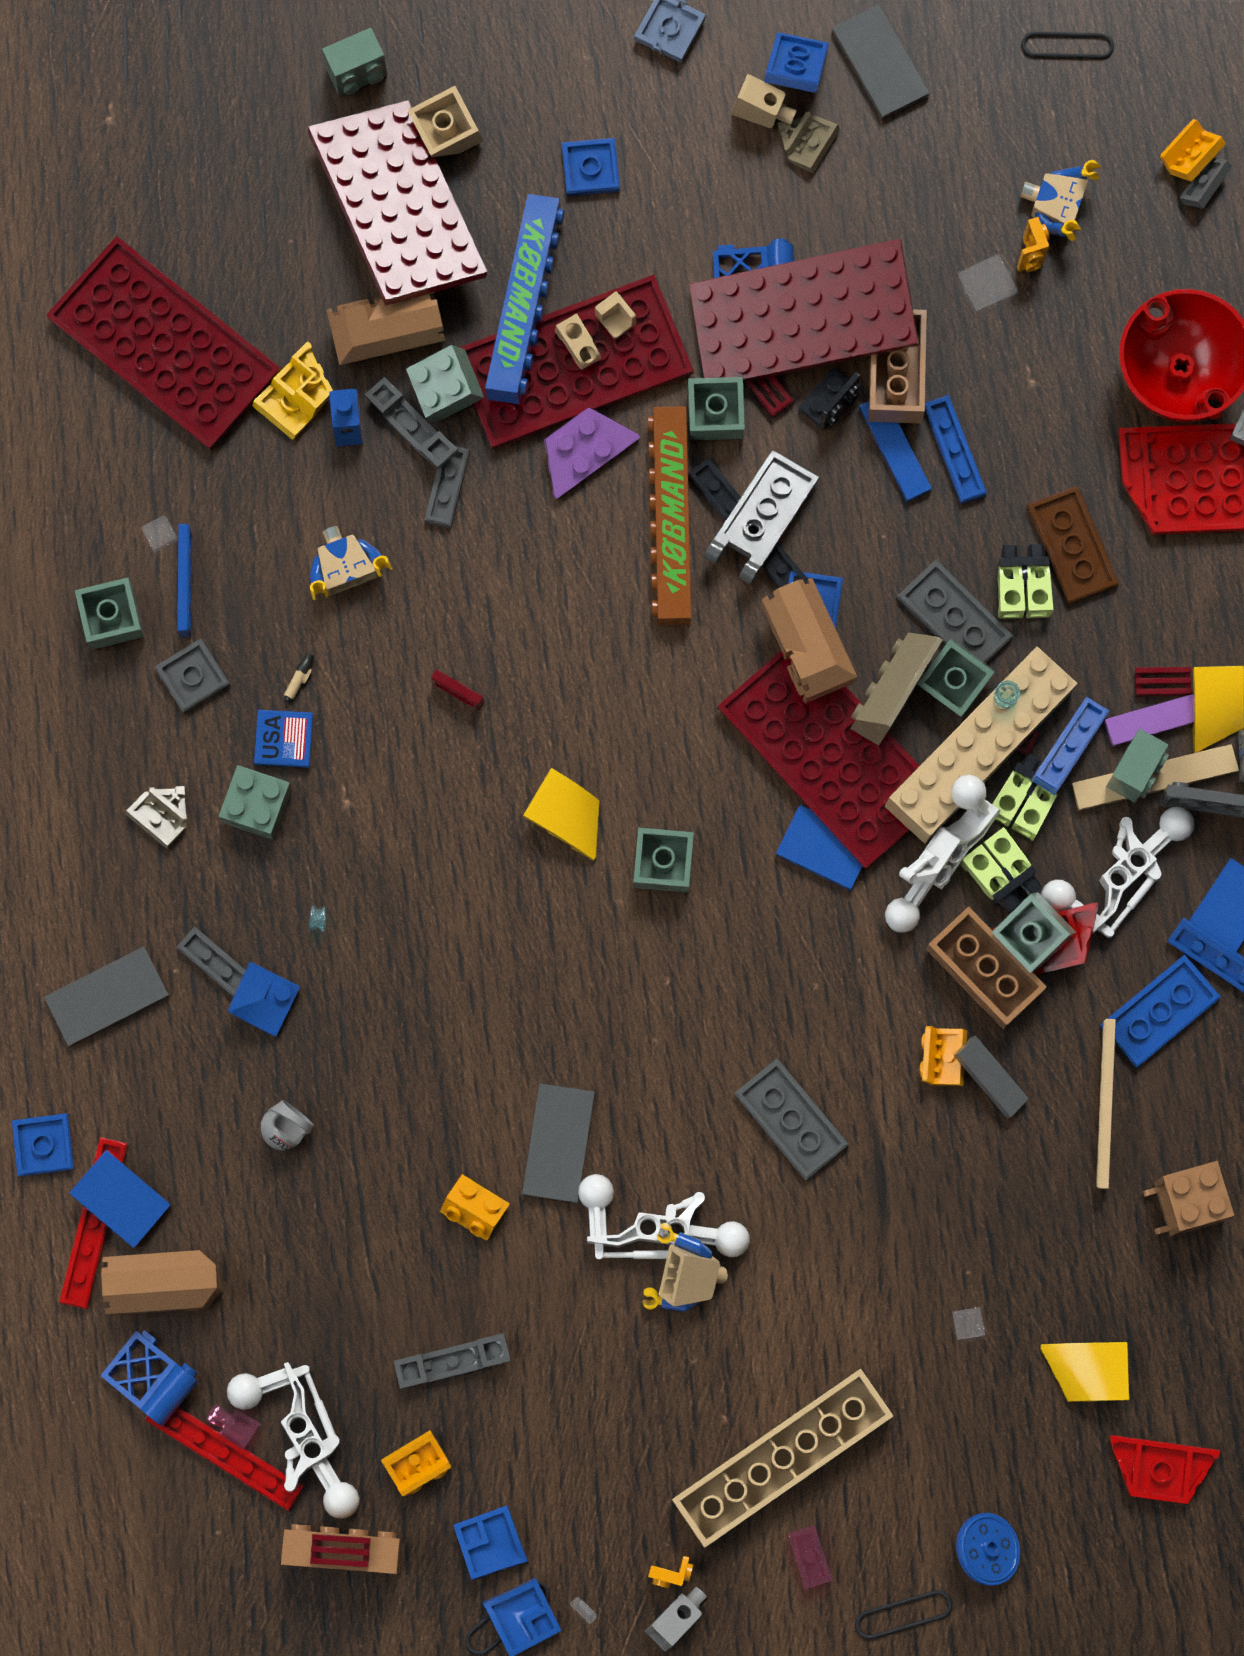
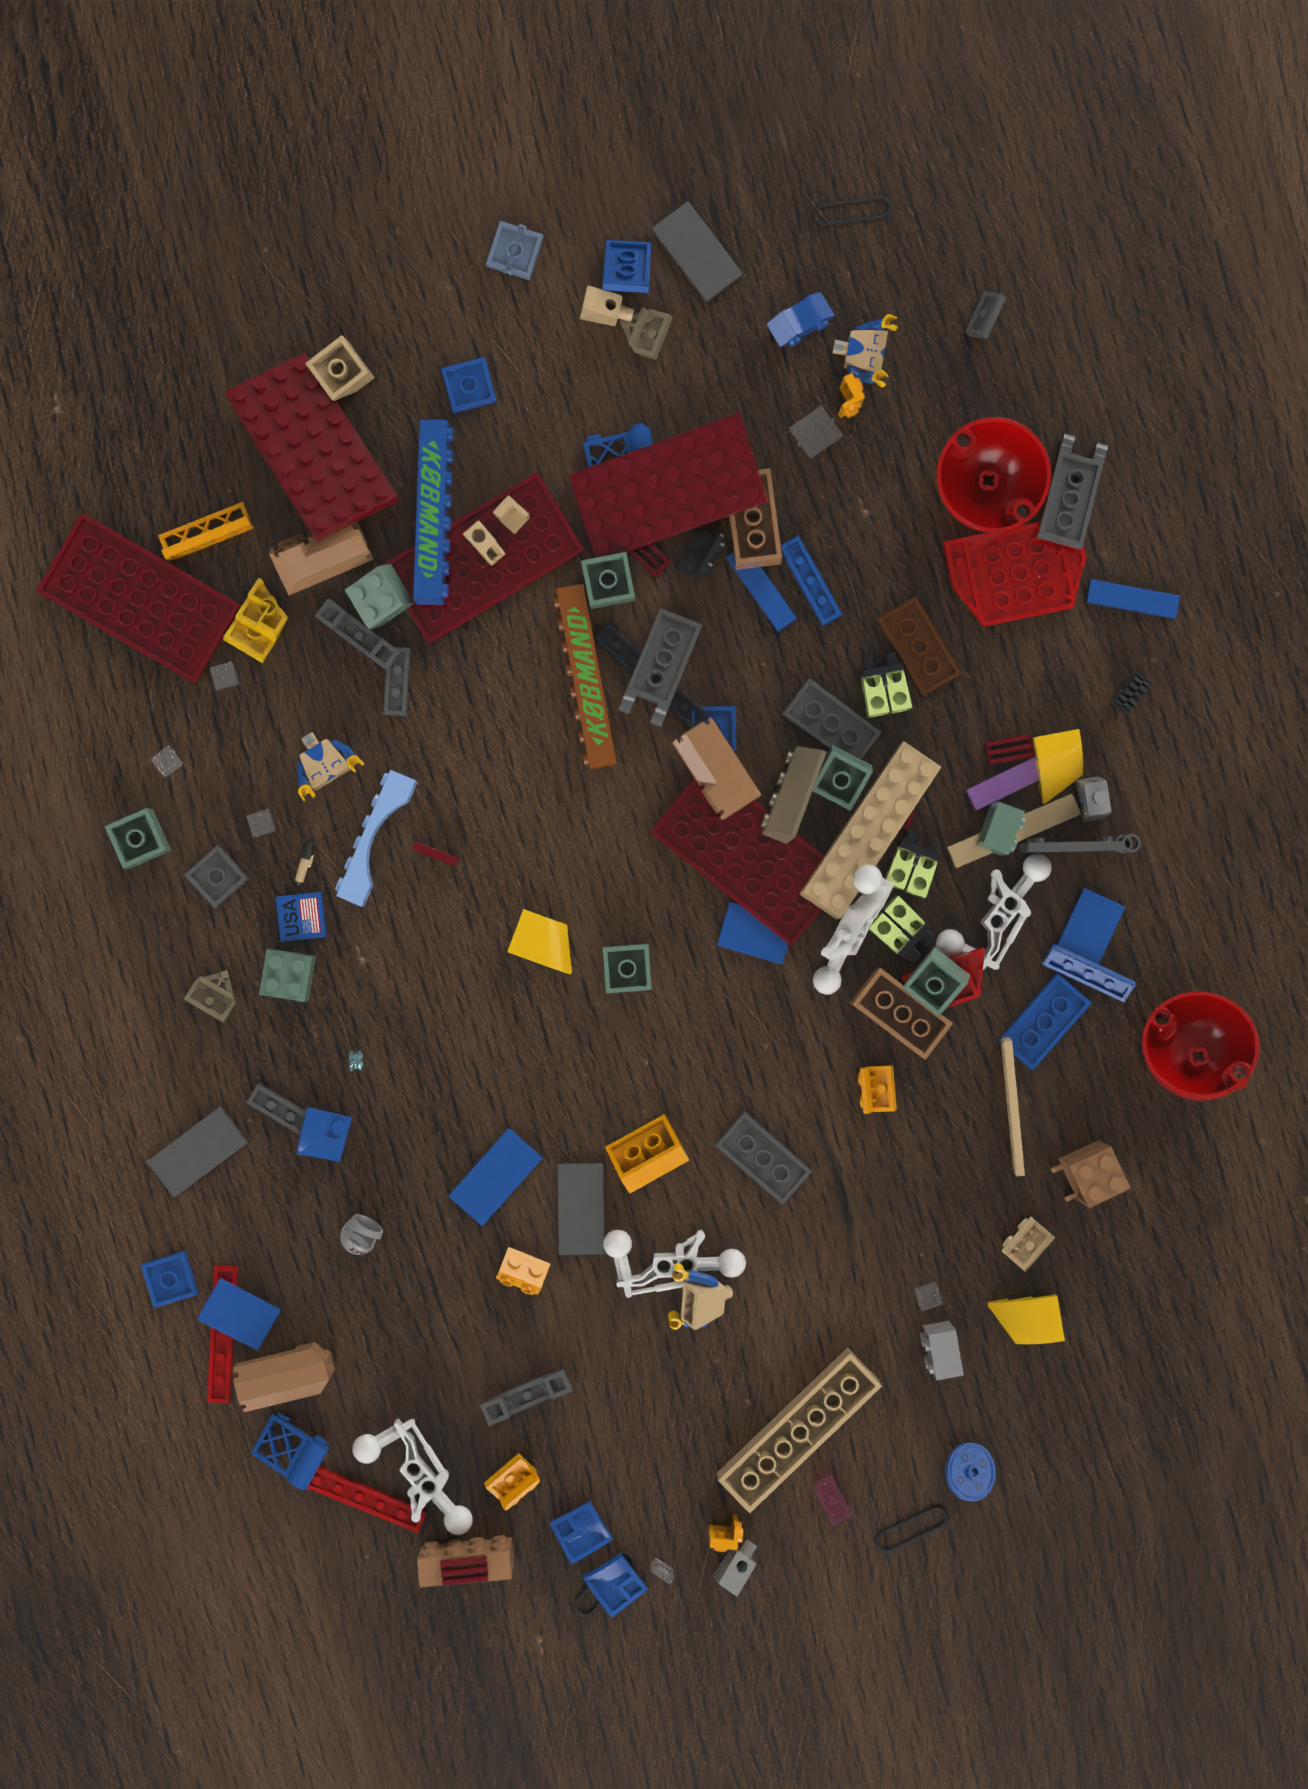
camera: 10 degrees left, 10 degrees up
(184, 580) = (195, 798): blue tile -> none
(236, 1427) = (366, 1477): clear pink plate -> none
(245, 447) = (224, 676): none -> clear tile
(256, 623) = (261, 823): none -> clear tile
(257, 286) = (207, 537): none -> light orange fence
(346, 415) = (302, 638): blue torso -> none
(355, 62) = (253, 327): sand green brick -> none
(422, 613) = (357, 881): none -> light blue arch
(461, 1087) = (495, 1176): none -> blue tile
(583, 447) = (503, 631): medium lavender wing -> none
(650, 1088) = (646, 1153): none -> light orange slope
(974, 1387) = (942, 1350): none -> light grey brick
(988, 154) = (801, 320): none -> blue brick
(991, 1076) = (917, 1099): dark grey tile -> none
(1009, 702) = (888, 795): clear light blue bush -> none
(1070, 745) = (942, 818): tile -> none
(1099, 1276) = (1027, 1243): none -> tan bracket
(1161, 1468) = (1097, 1384): red wing -> none
(1191, 151) = (970, 290): light orange bracket -> none

